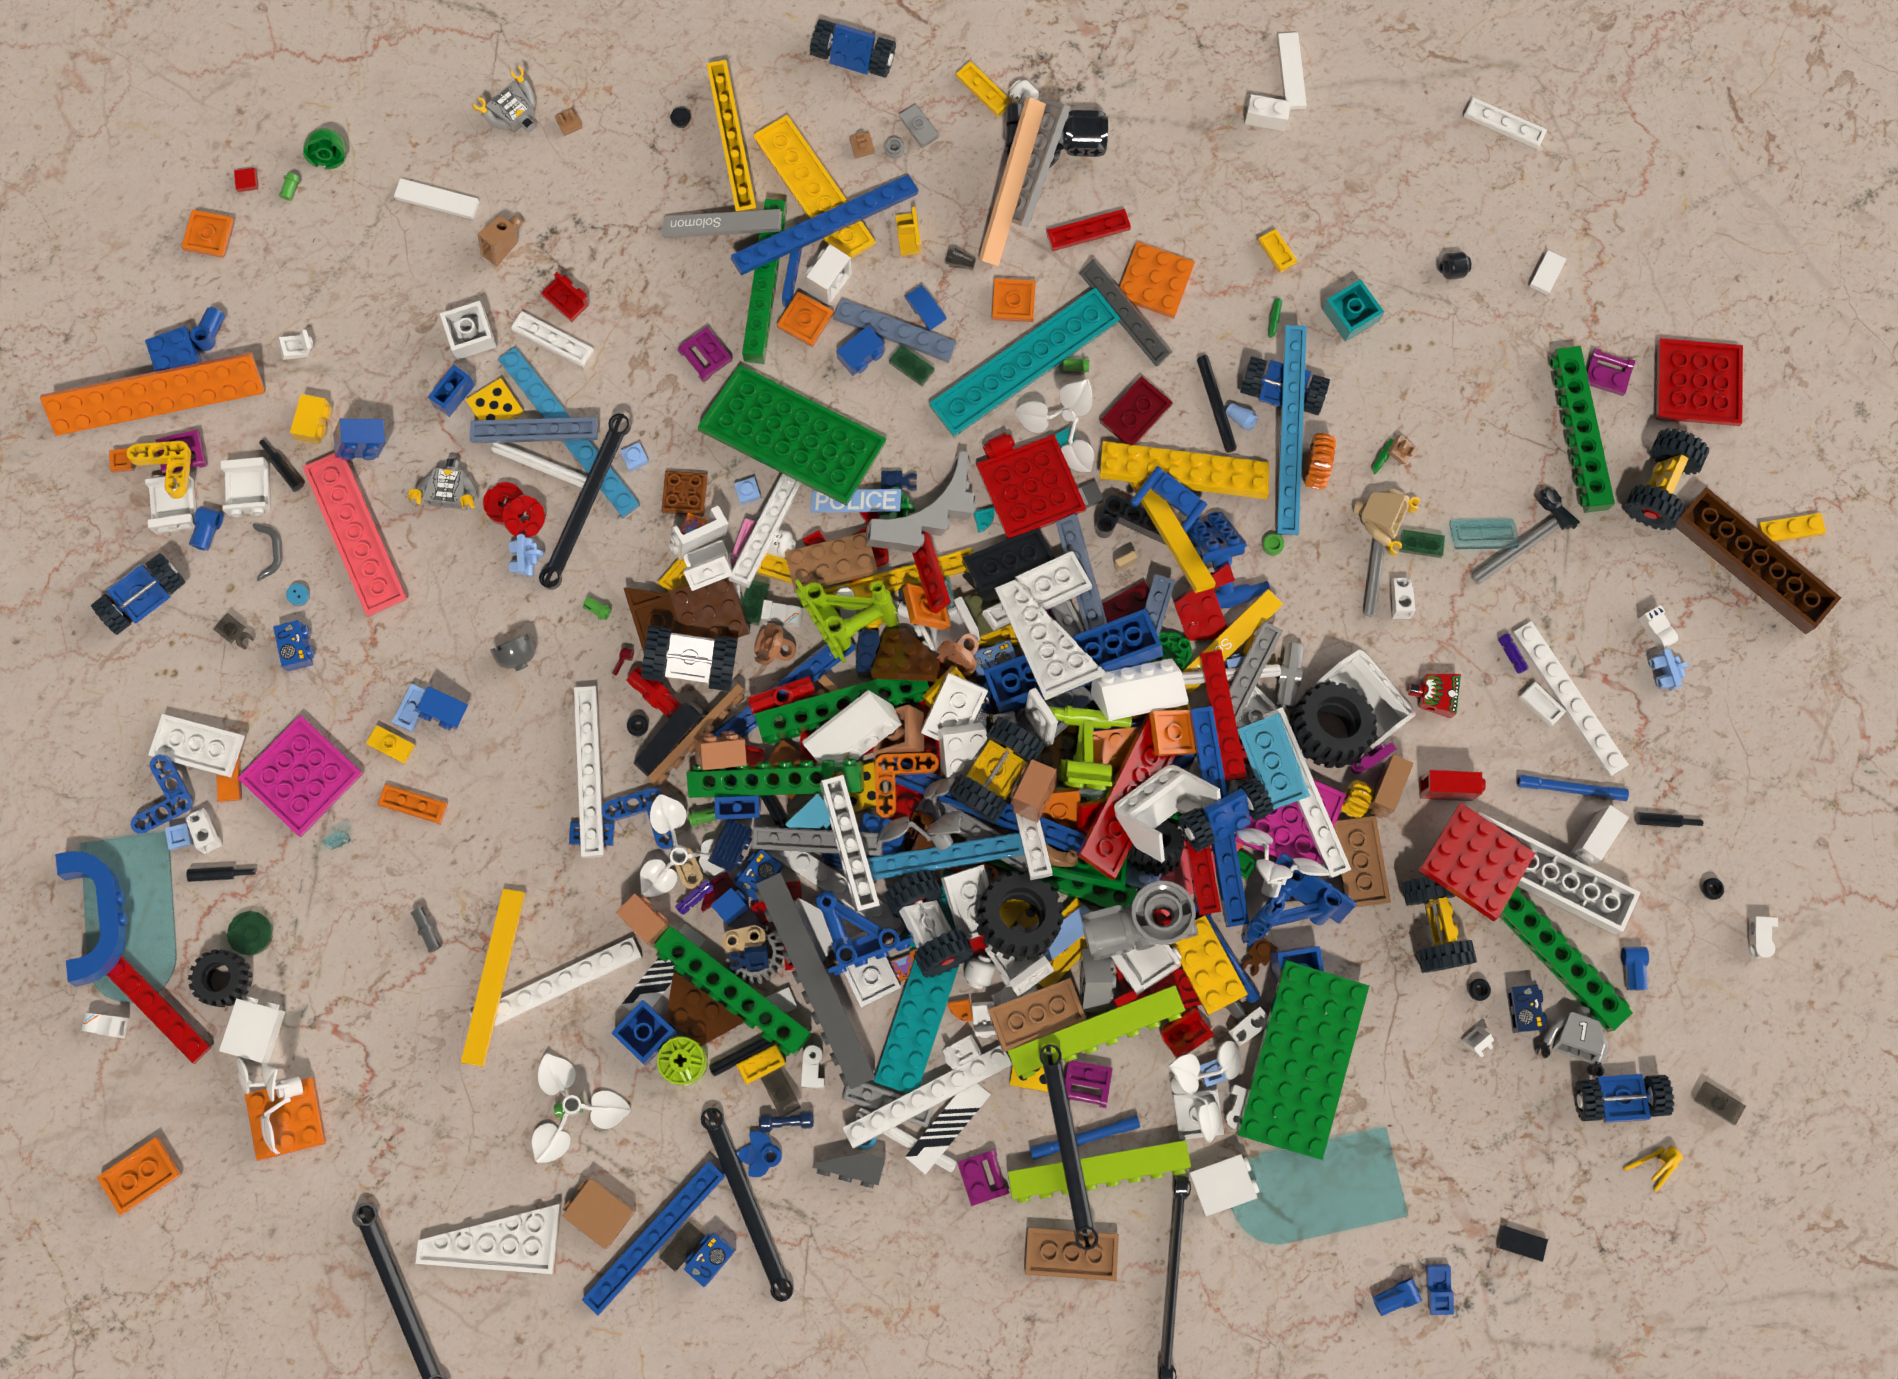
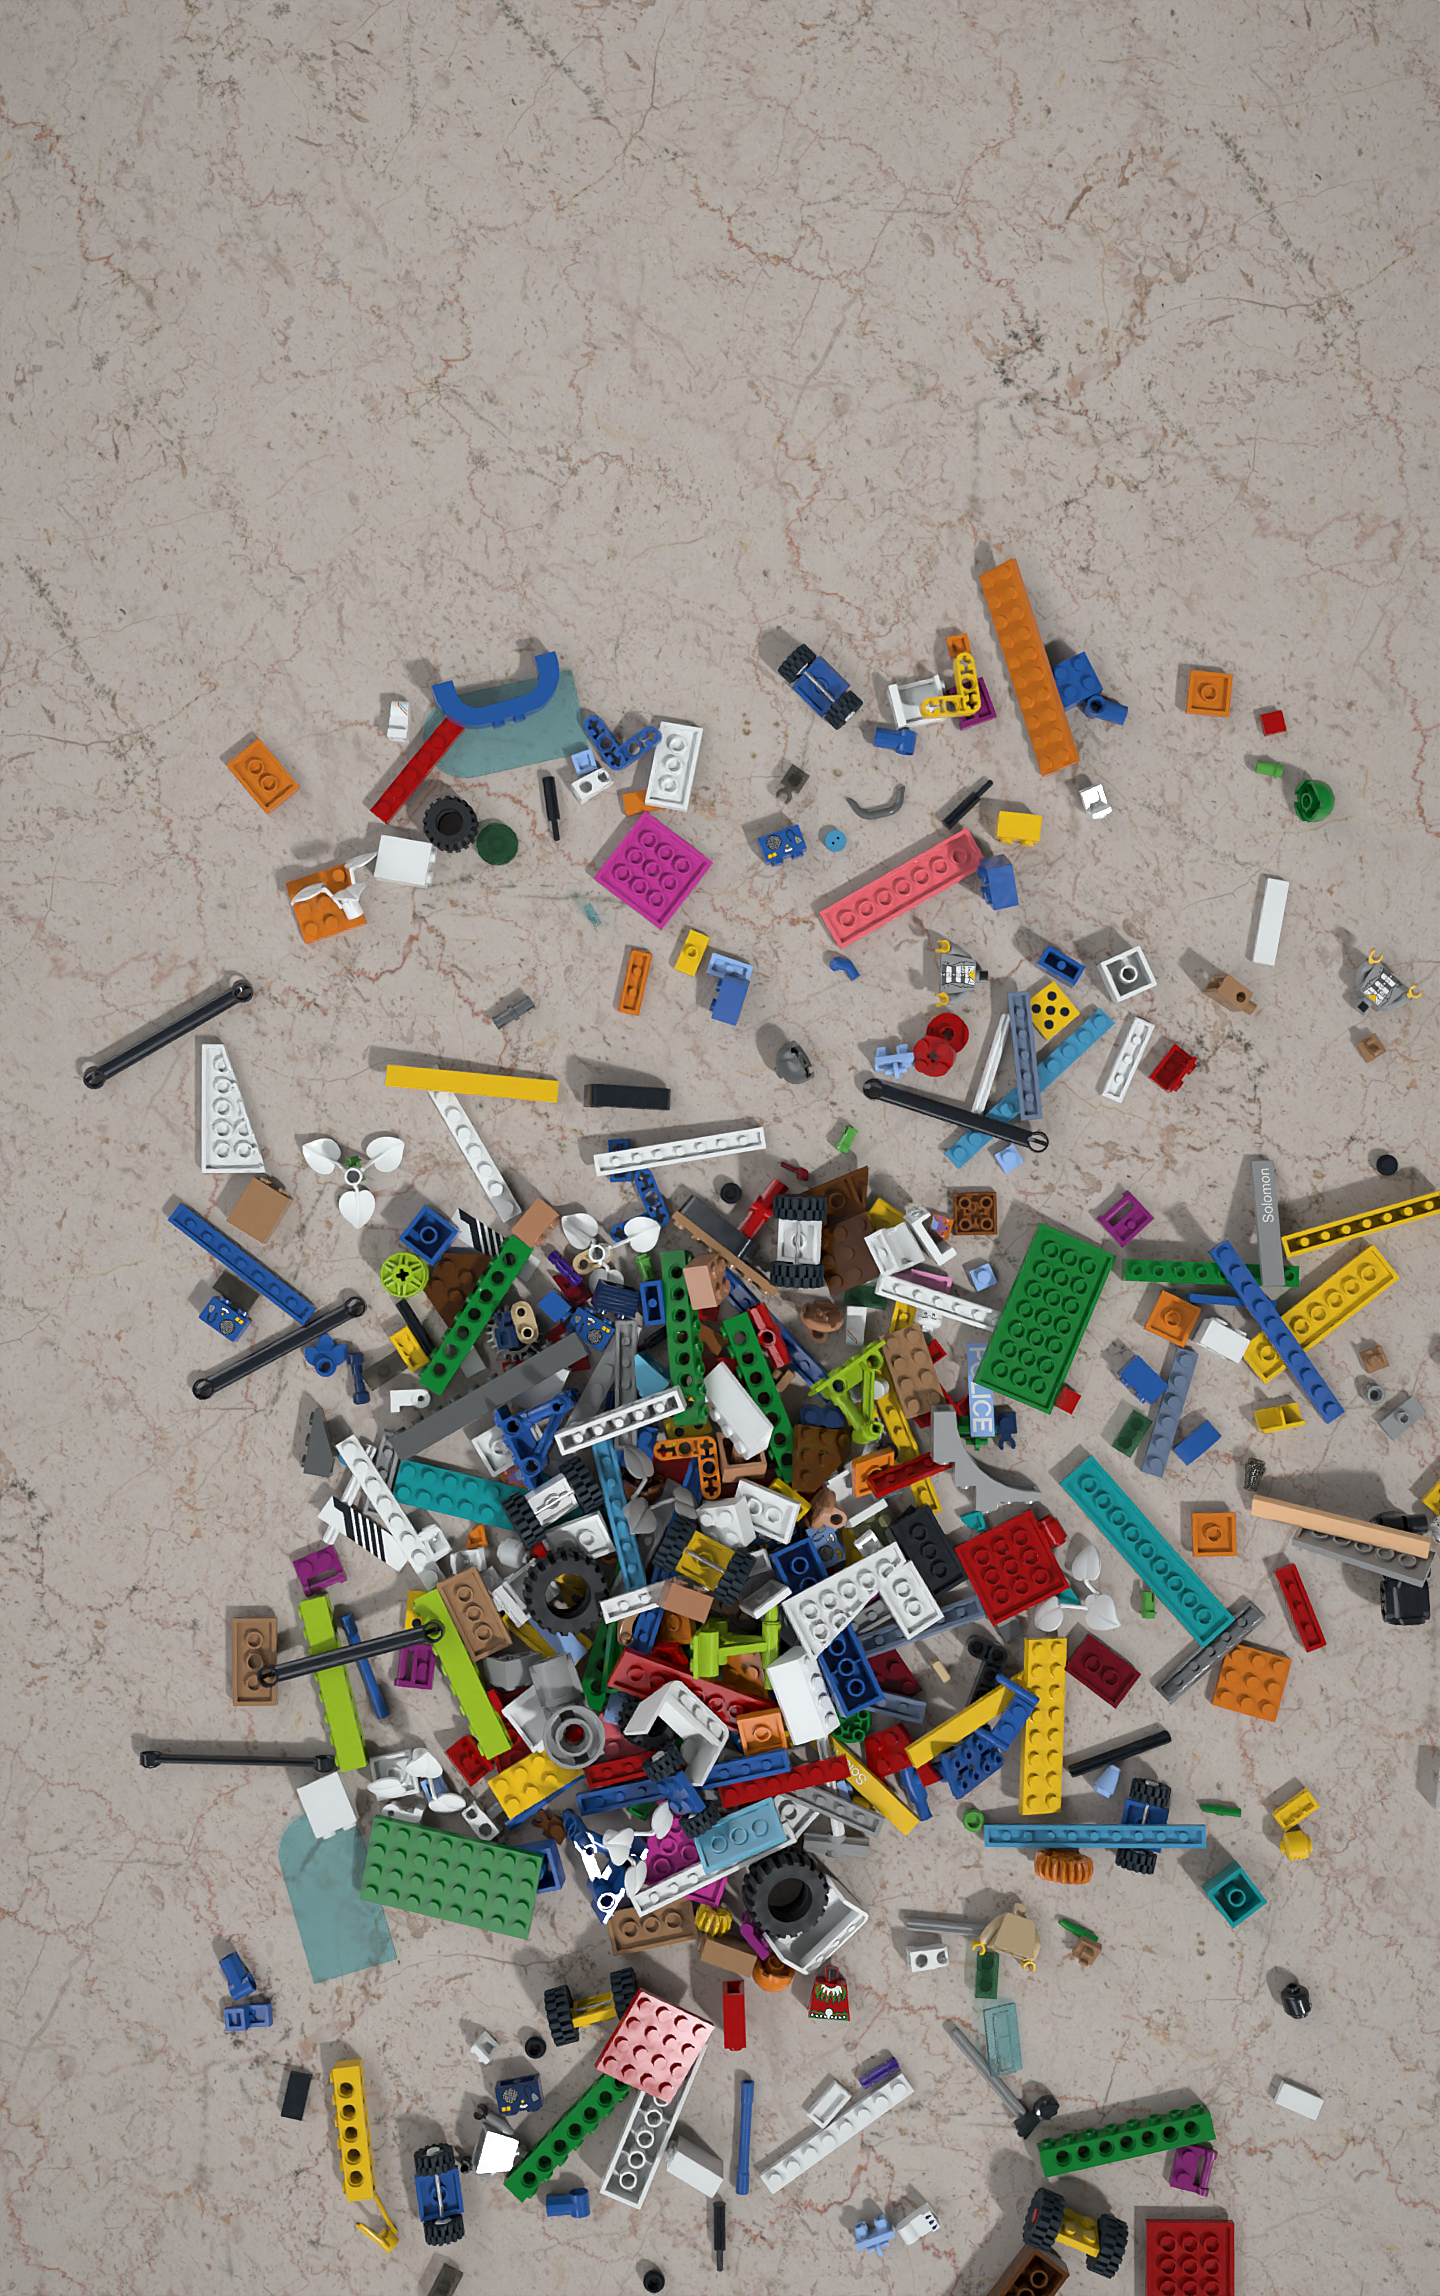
camera: 90 degrees right, 10 degrees up
(246, 486) = (941, 774): white panel -> none
(423, 594) = (846, 965): none -> blue arm
(525, 821) = (626, 1097): none -> black beam
(874, 421) = (1067, 1400): none -> red tile
(1310, 252) = (1296, 1845): none -> yellow head
(1412, 743) = (772, 1974): none -> orange cylinder
(1616, 1180) = (354, 2187): none -> yellow brick

